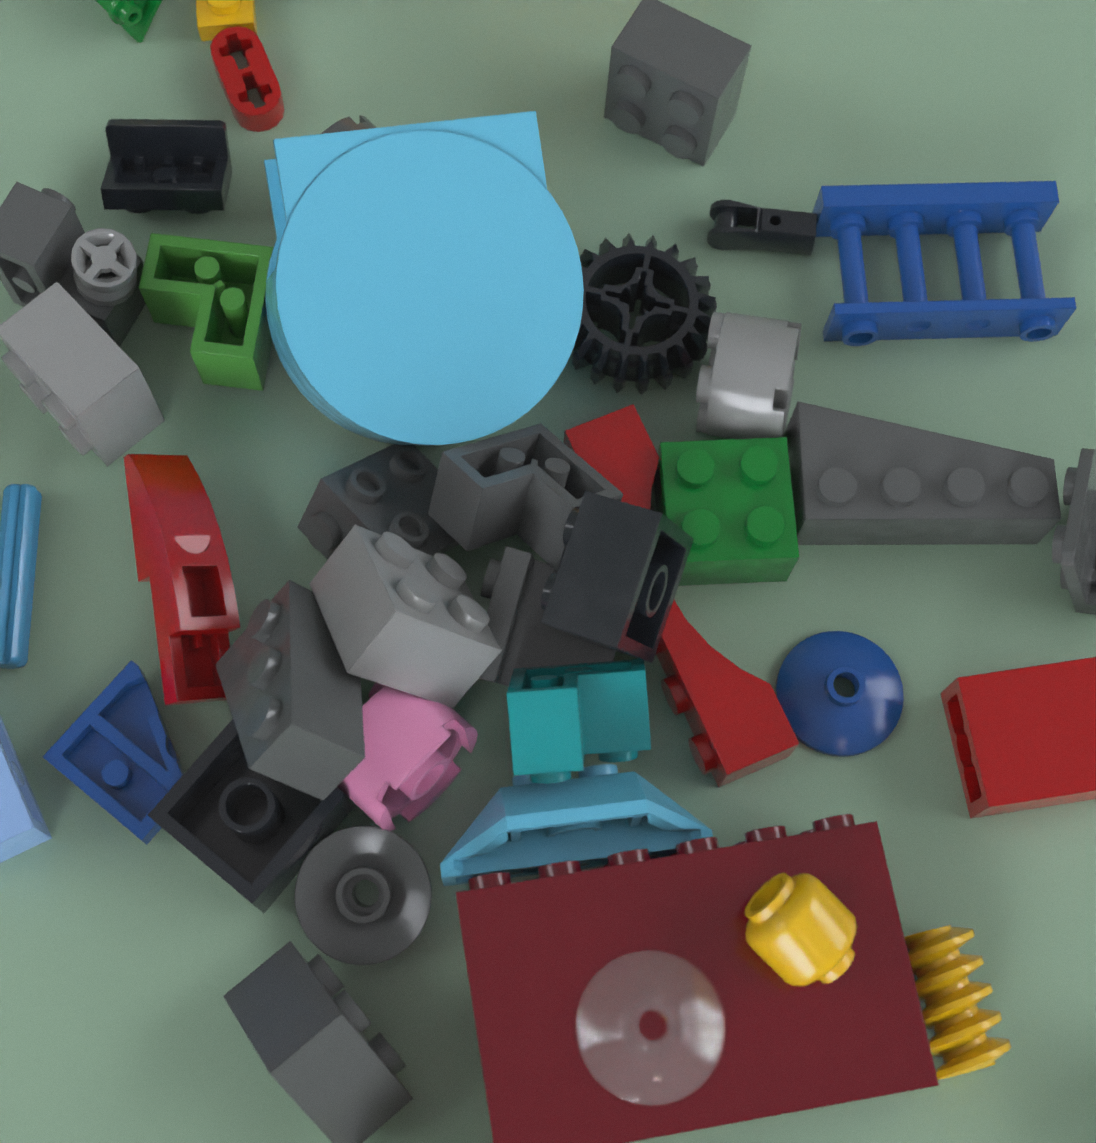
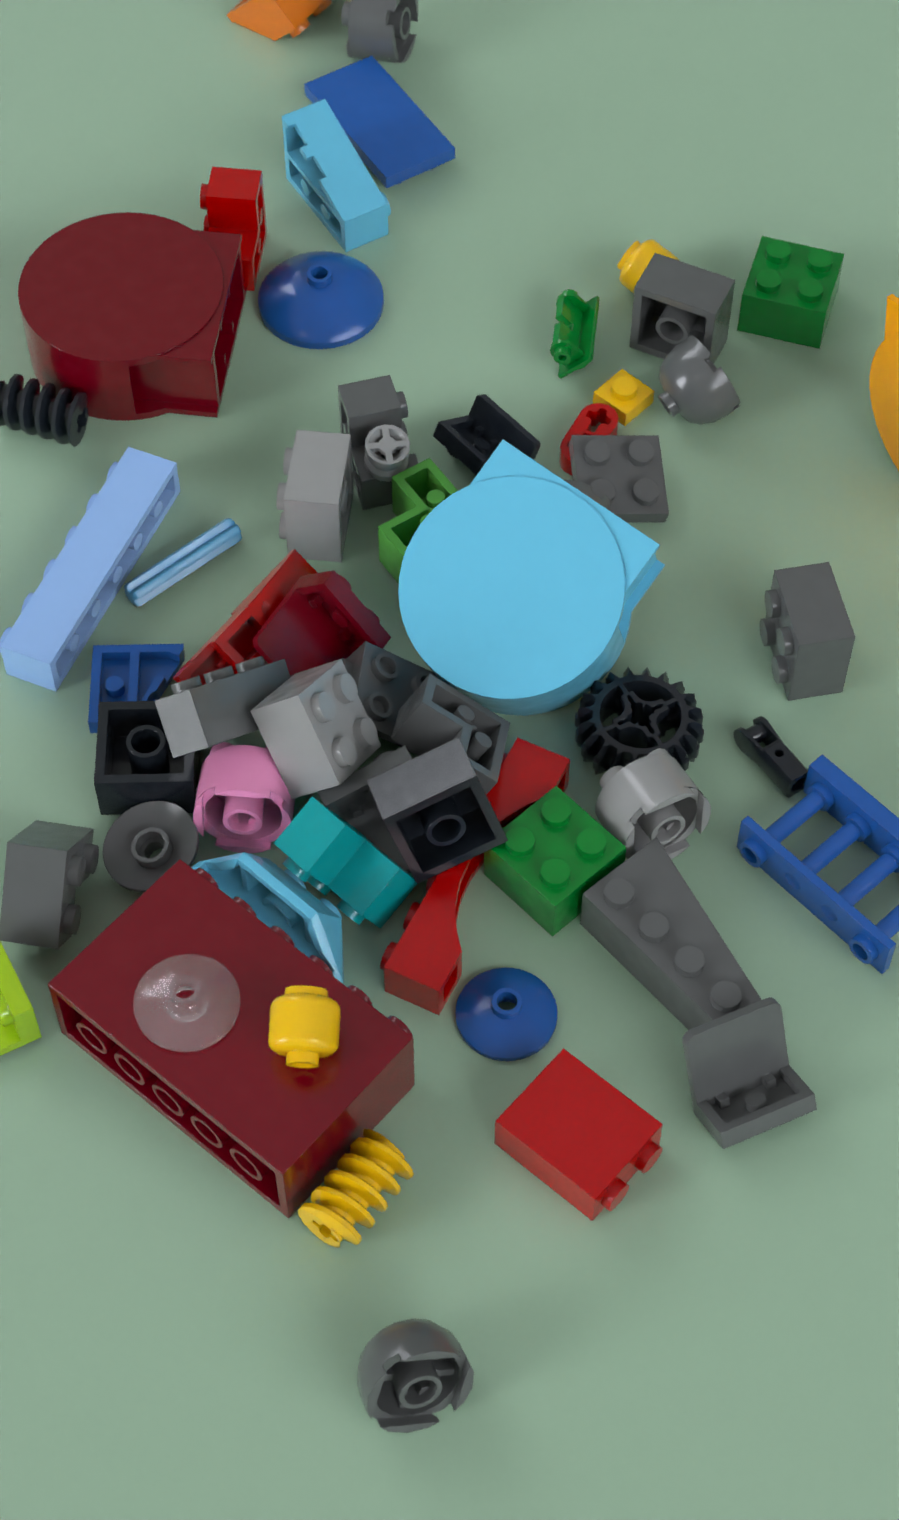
camera: 55 degrees right, 15 degrees down
(250, 515) = (318, 624): none -> dark red bracket
(322, 81) = (624, 470): none -> dark grey plate

